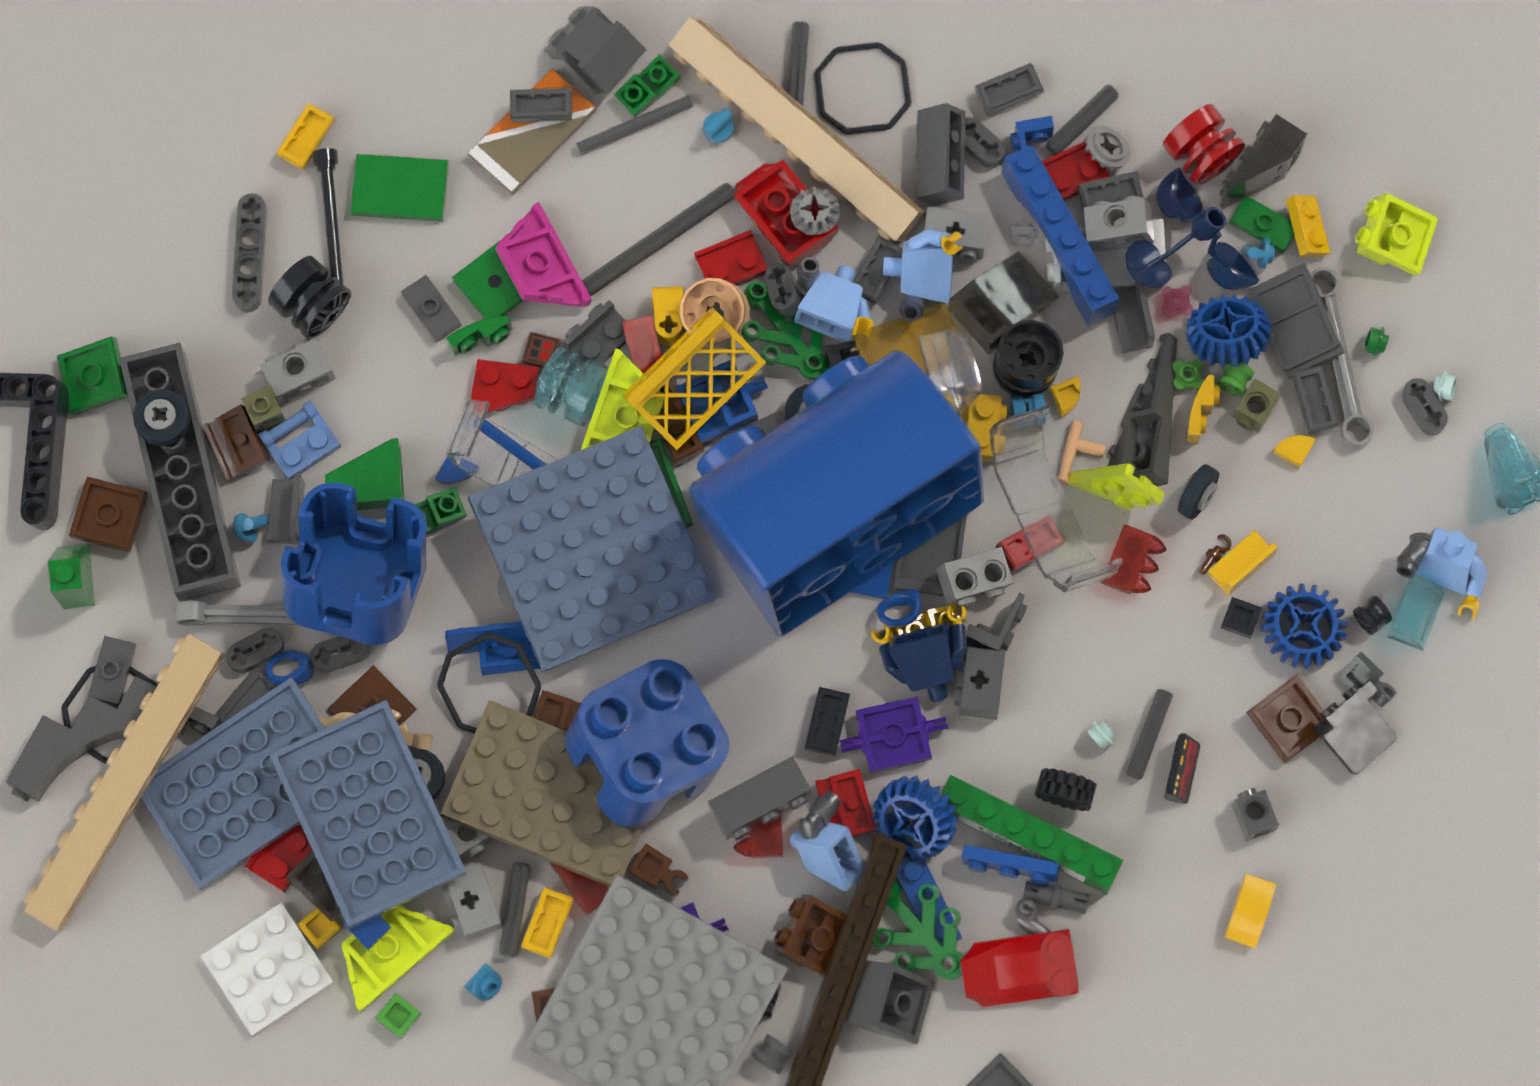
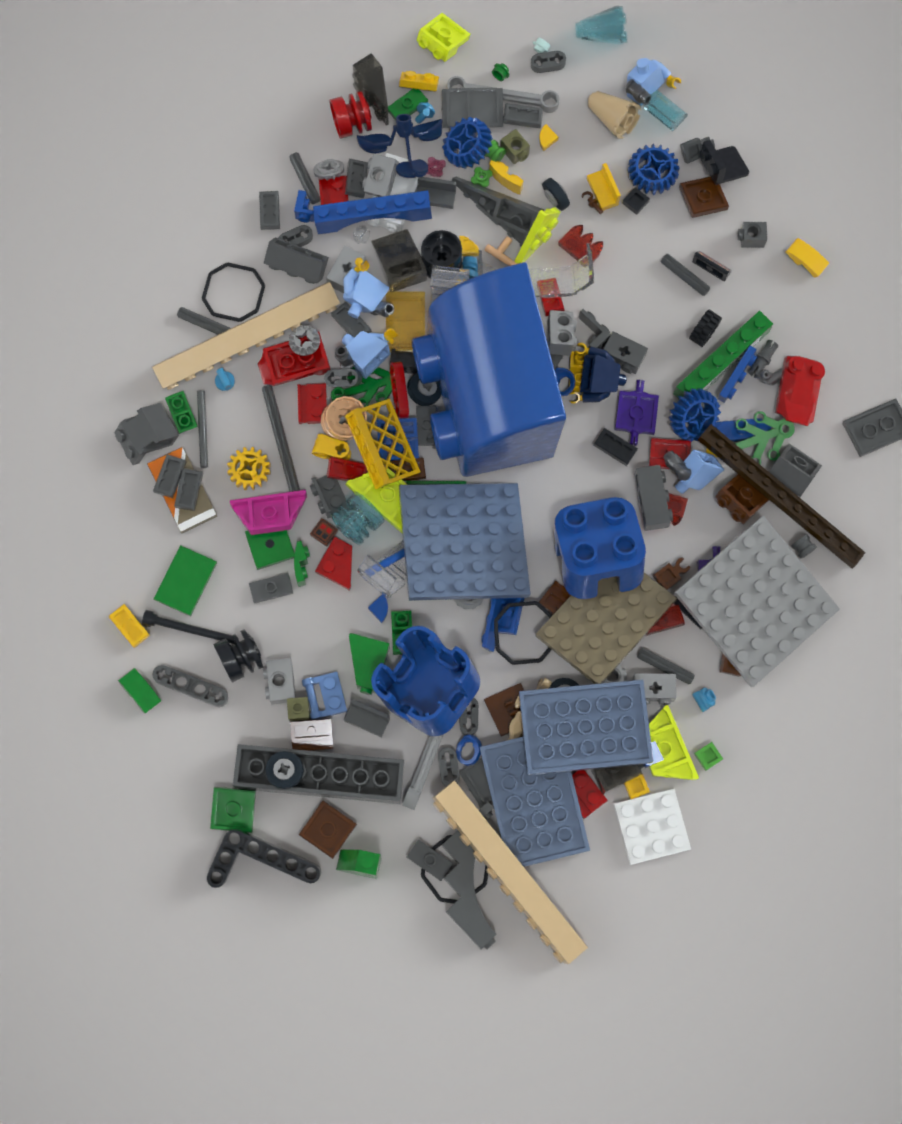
camera: 75 degrees left, 0 degrees up
(217, 186) = (139, 690): none -> green slope
(246, 527) = (369, 746): dark azure plate -> none
(530, 138) = (188, 489): none -> dark grey plate
(547, 923) = (681, 649): yellow plate -> none
(601, 198) = (243, 473): none -> yellow gear
(789, 373) = (399, 390): none -> red beam
(1102, 734) = (677, 299): light aqua plate -> none
(1372, 534) = (616, 113): none -> tan cone
(1372, 615) = (660, 131): black wheel -> none

